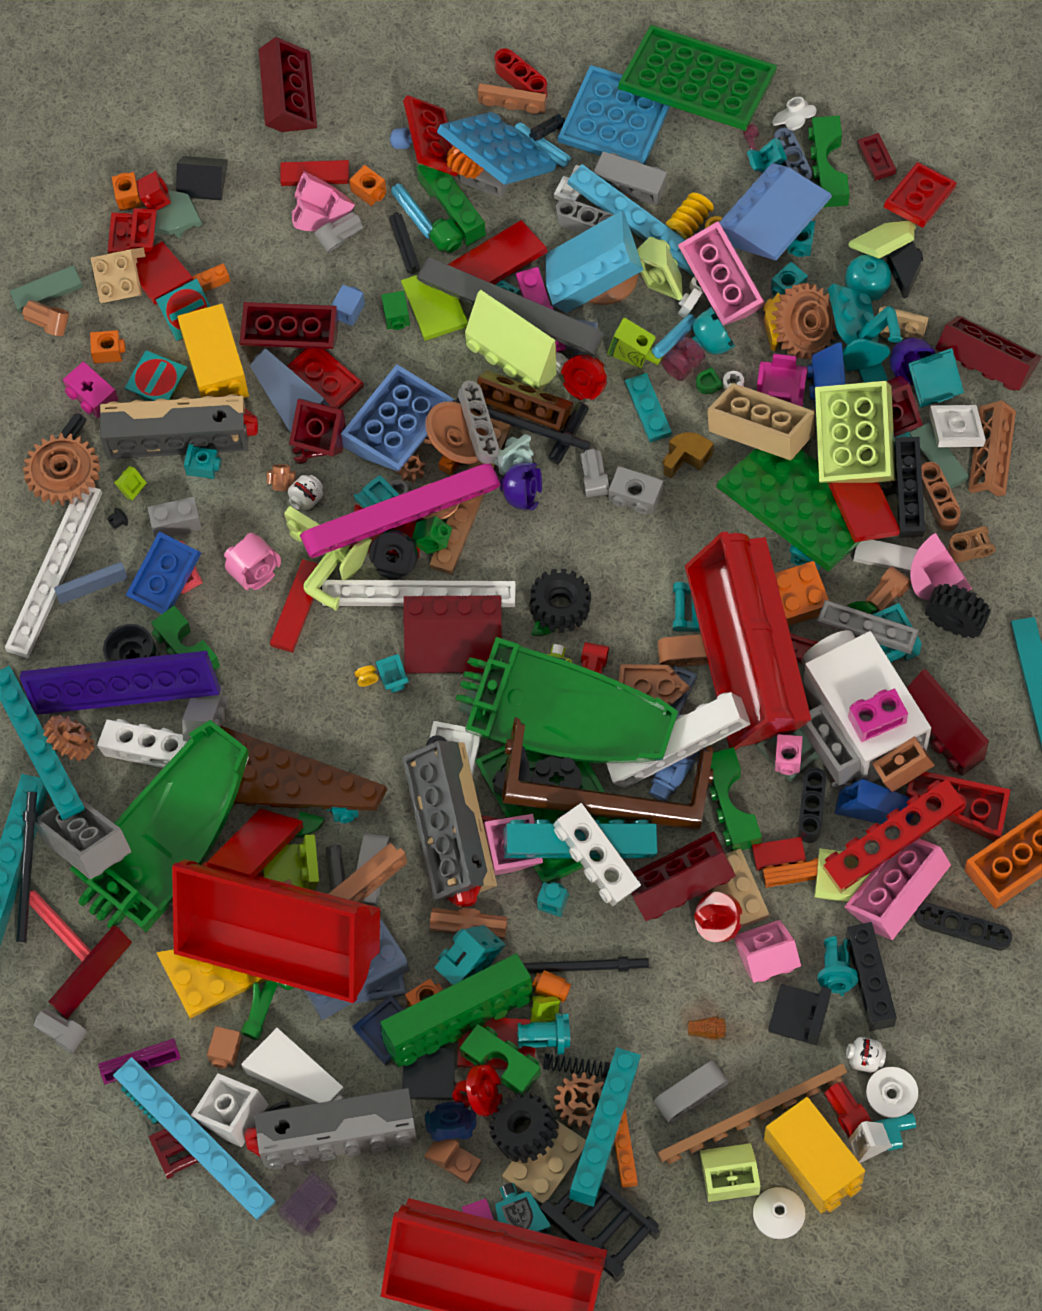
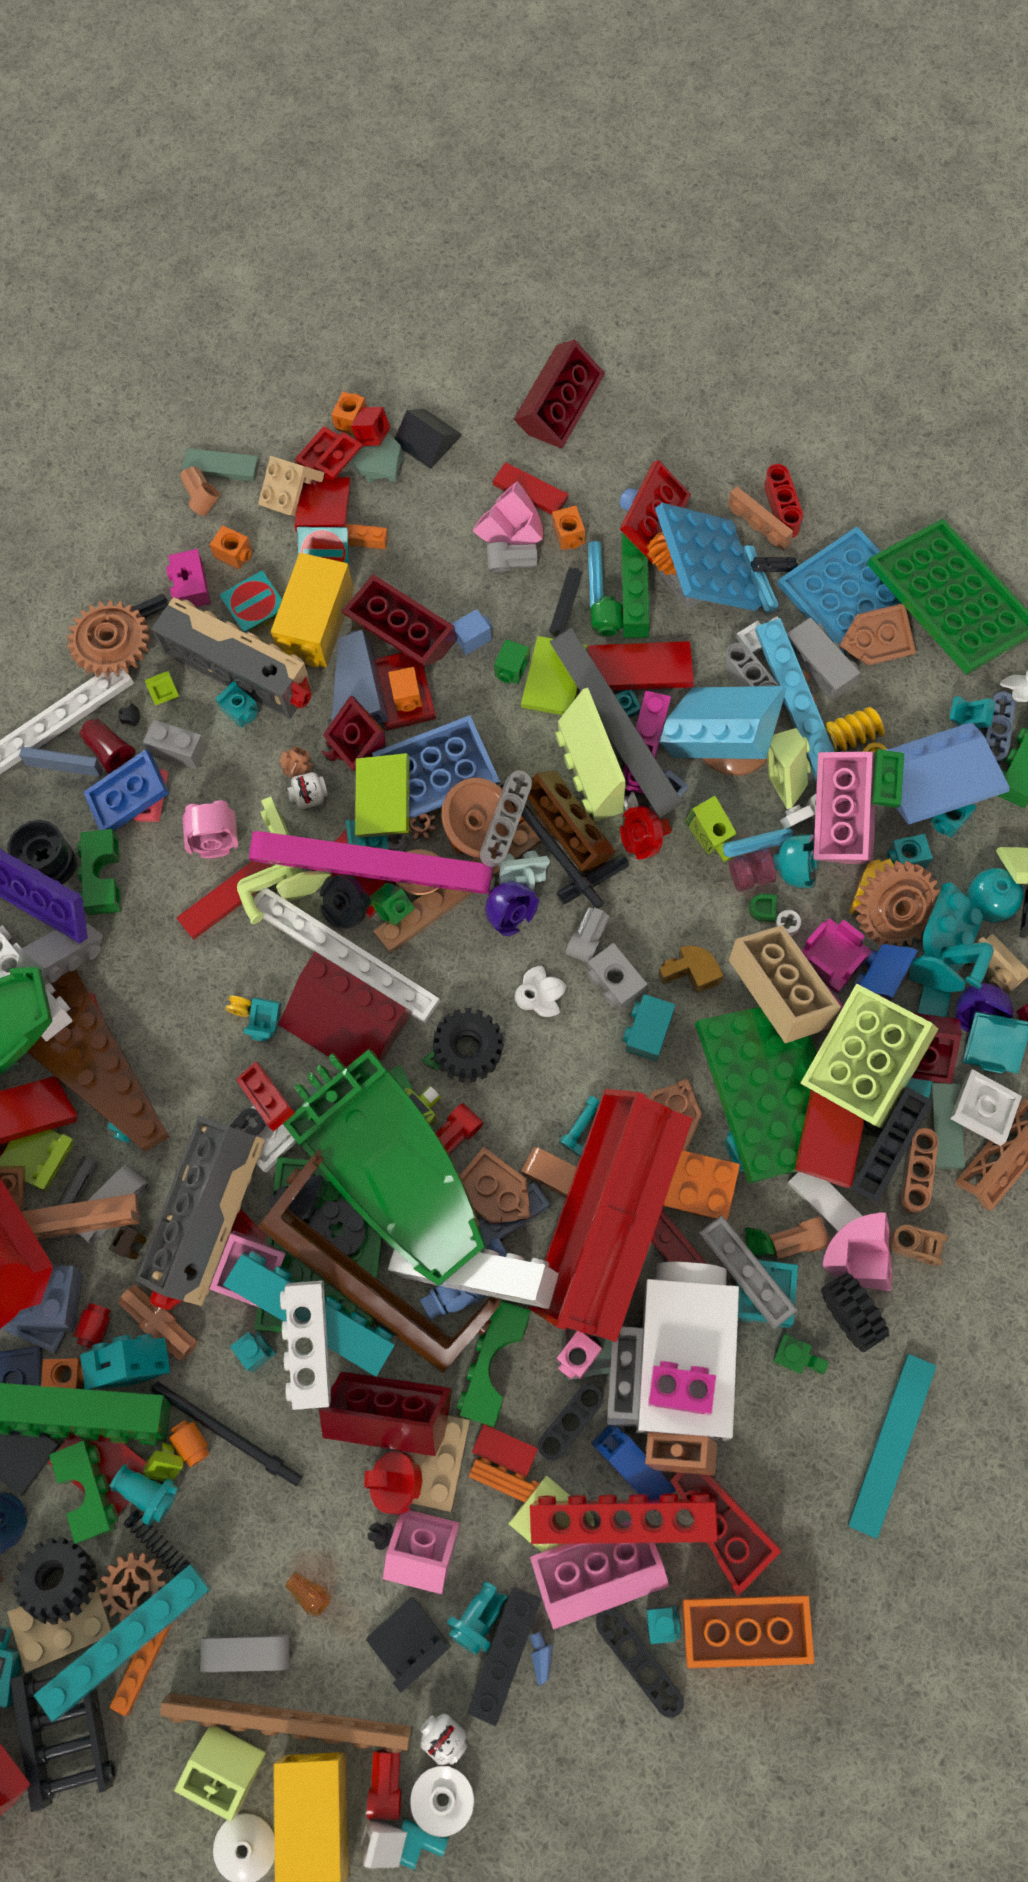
camera: 35 degrees right, 5 degrees up
(119, 549) = (106, 745): none -> dark red plant
(310, 824) = (87, 1120): green tile -> none
(329, 375) = (405, 689): none -> orange brick
(372, 458) = (382, 795): none -> lime tile
(401, 885) = (123, 1241): none -> dark brown tile
(421, 955) = (92, 1325): none -> red brick
(436, 722) = (265, 1096): none -> red tile
(480, 1089) = (44, 1511): red tile -> none
(585, 535) = (544, 992): none -> white plate
(648, 407) = (687, 899): teal plate -> none
(662, 137) = (880, 635): none -> nougat tile
(684, 511) = (649, 1028): none -> teal brick
(731, 959) = (380, 1535): none -> black piece
(740, 234) = (887, 778): none -> green plate
(751, 133) = (972, 679): clear pink hand -> none
(896, 966) = (541, 1657): none -> medium blue bar
(939, 669) = (795, 1356): none -> green plate
(951, 728) = (761, 1426): dark red slope -> none
(962, 891) = (663, 1624): none -> teal brick

